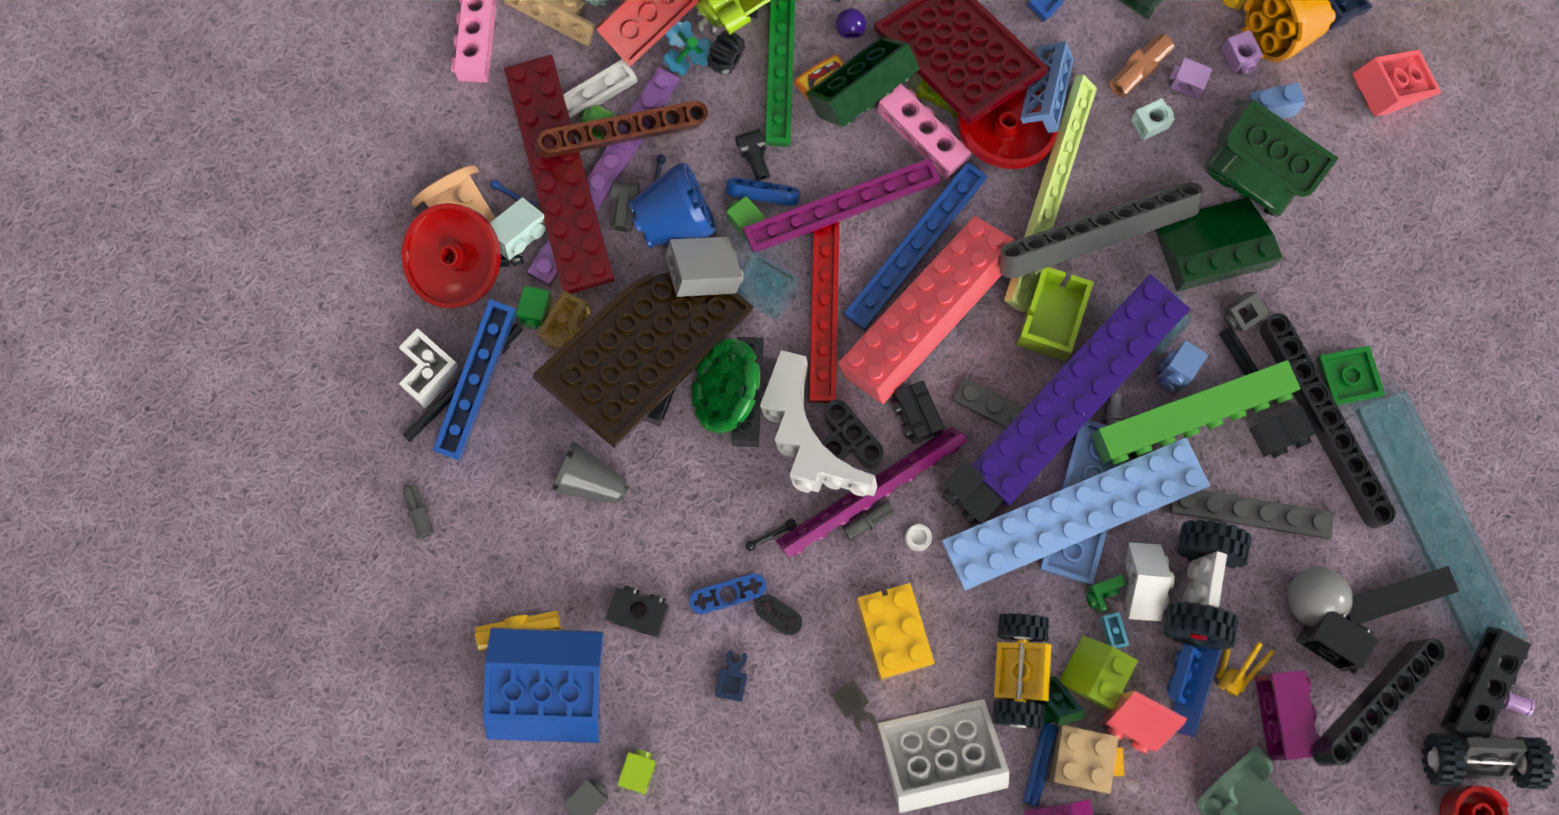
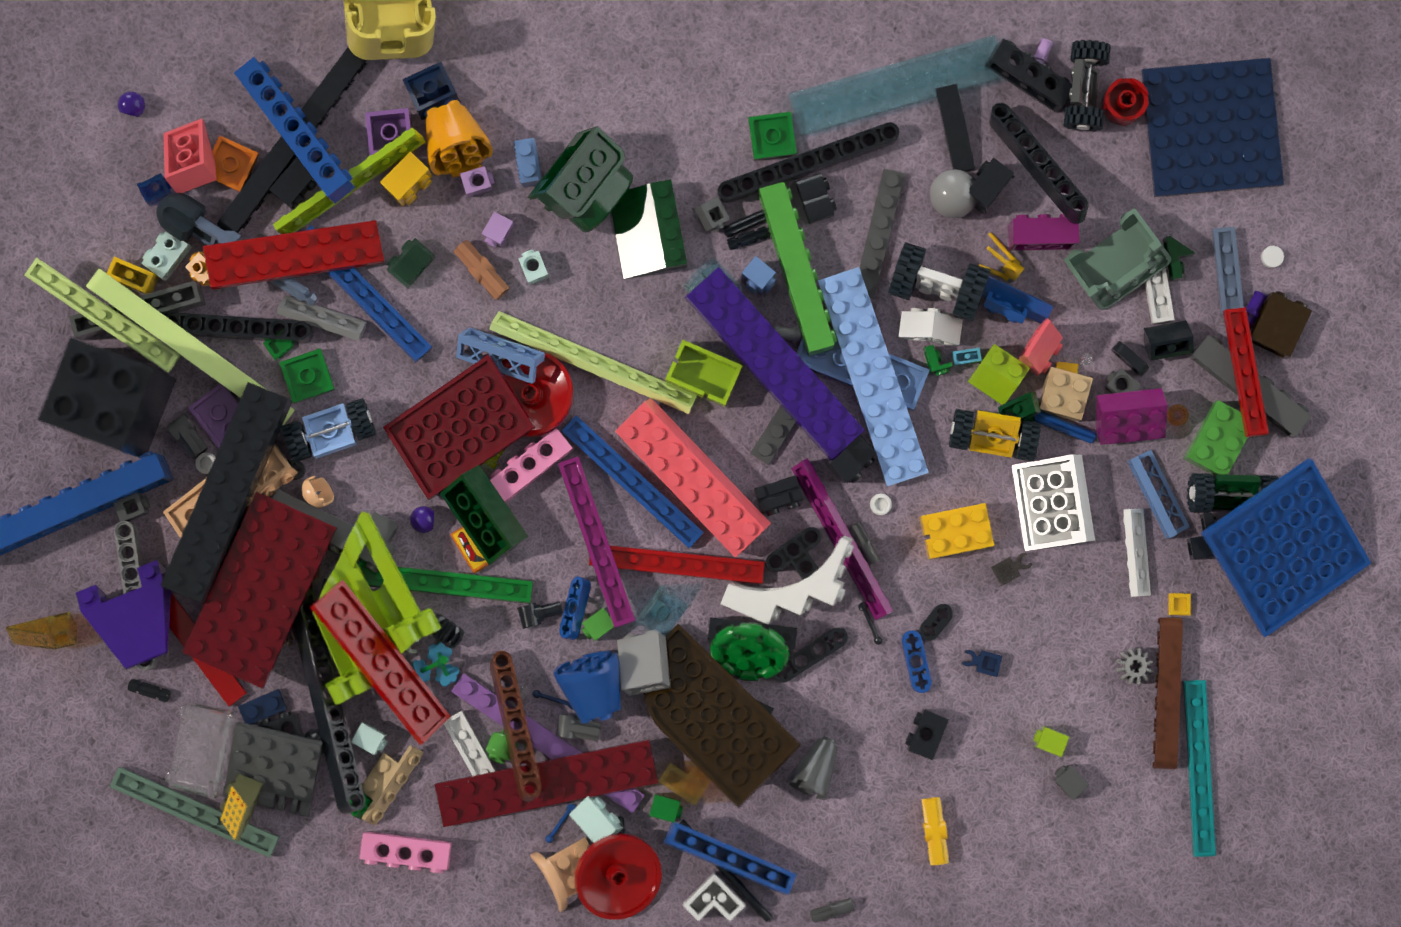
camera: 80 degrees left, 10 degrees up
(543, 685) = (980, 811): blue slope -> none
(723, 467) = (811, 656): none -> black beam
(1100, 230) = (636, 327): dark grey beam -> none
(1222, 357) = (747, 238): none -> black axle
(1395, 82) = (514, 52): coral slope -> none

